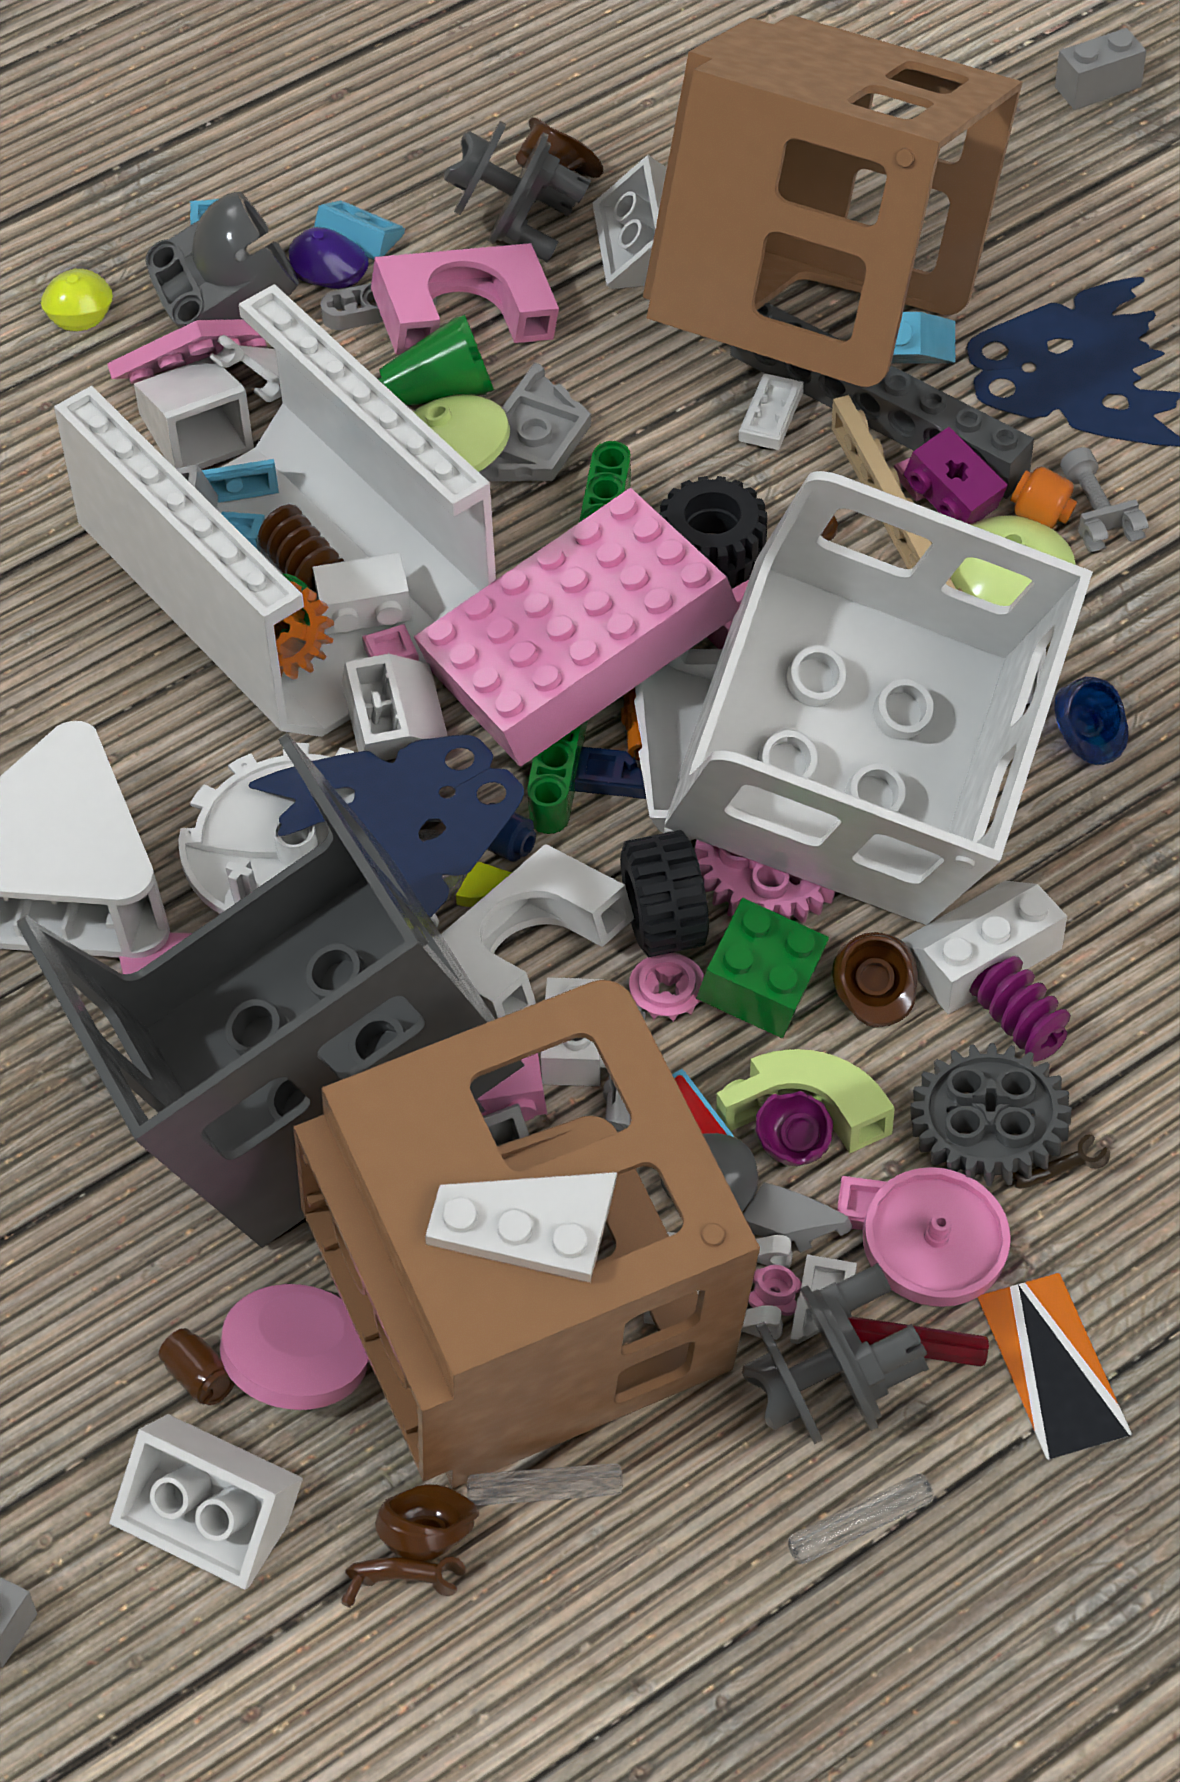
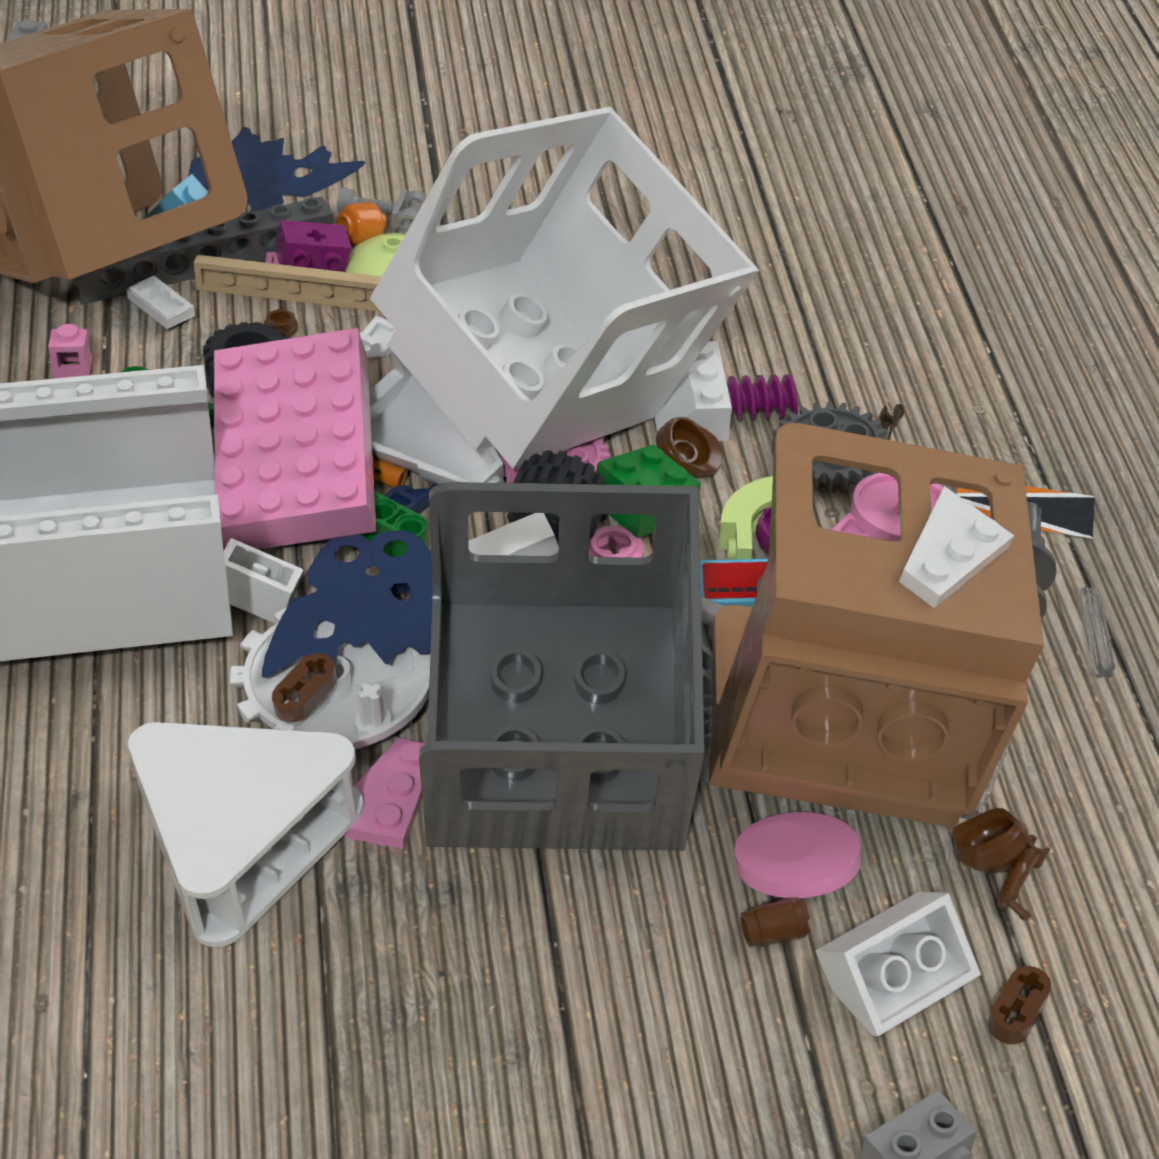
camera: 65 degrees left, 10 degrees down
(218, 1640) = (1027, 1008): none -> reddish brown beam
(243, 821) = (301, 685): none -> reddish brown beam
(623, 389) = (70, 345): none -> bright pink brick

